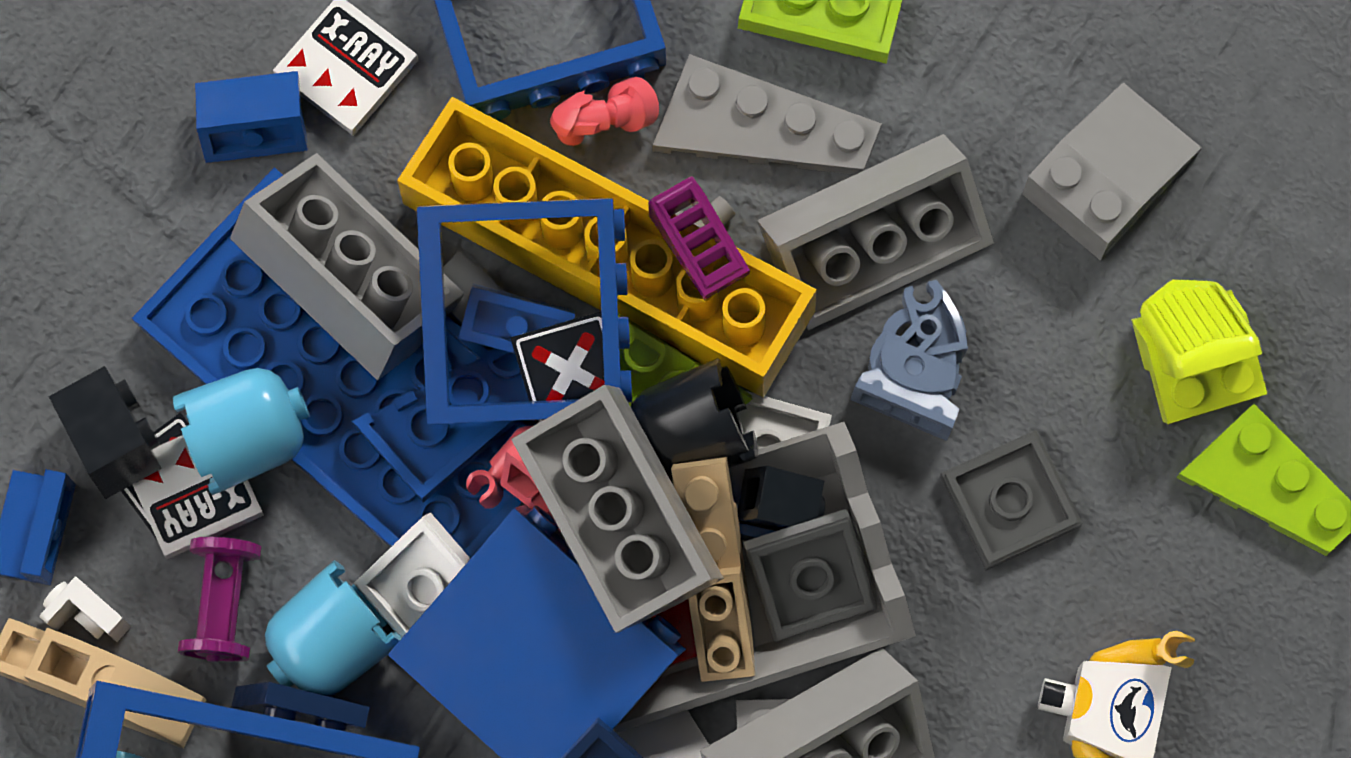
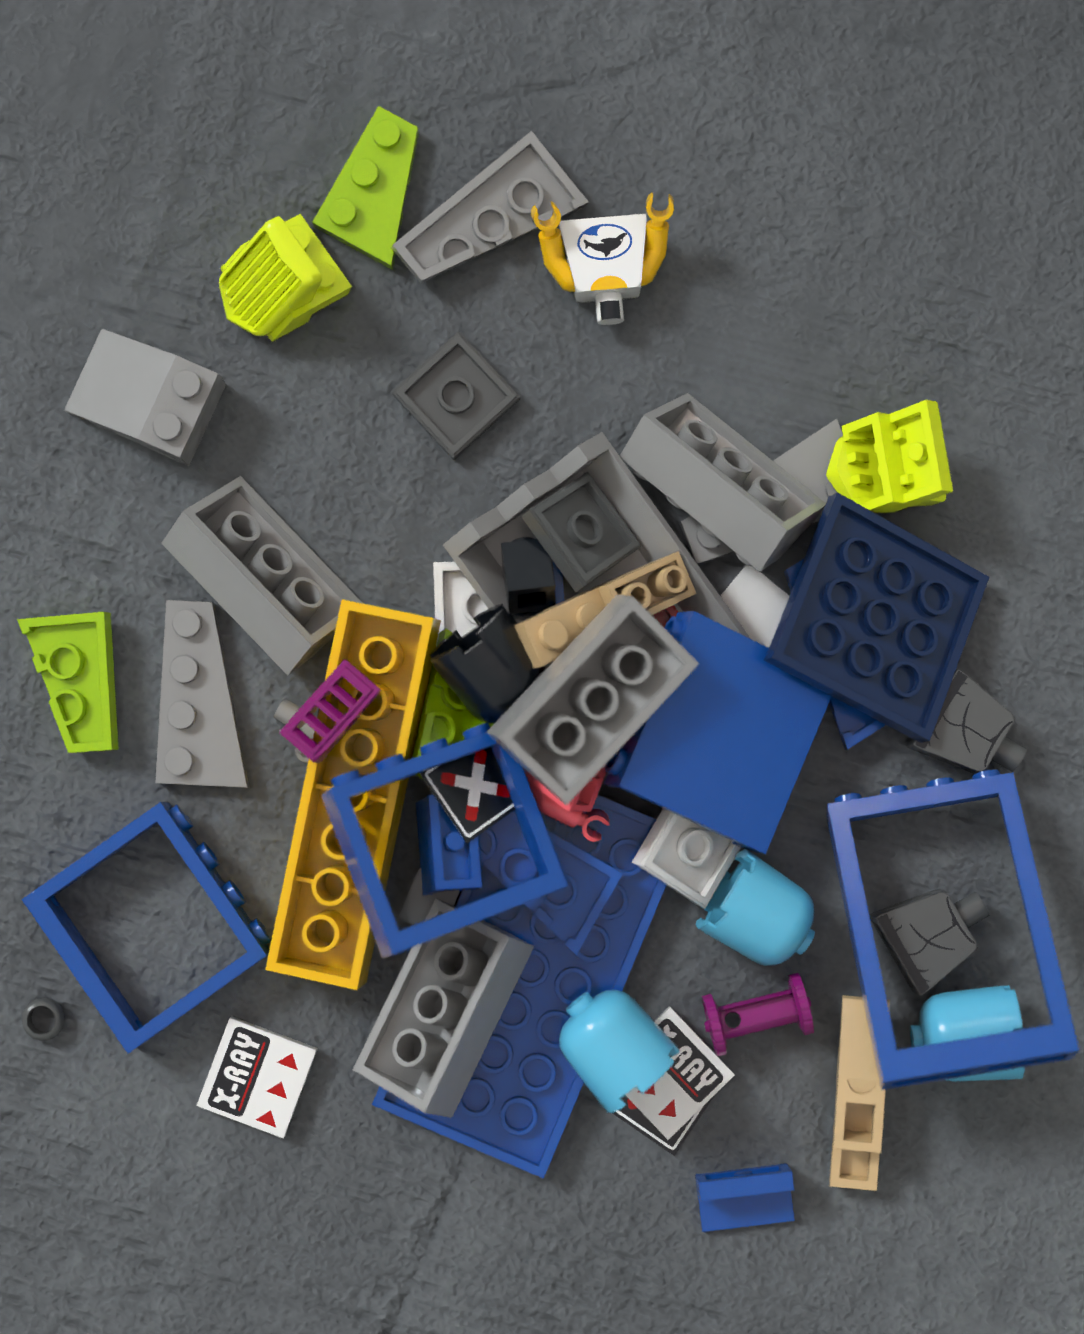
camera: 110 degrees left, 10 degrees up
(94, 614) = (801, 1115): white bracket -> none
(105, 432) = (650, 1162): black brick -> none
(250, 117) = (331, 1143): blue panel -> none
(300, 705) = (829, 927): dark blue wing -> none
(629, 105) = (218, 818): coral arm -> none
(919, 371) = (372, 500): sand blue piece -> none
(1209, 602) = (490, 210): none -> light grey wing

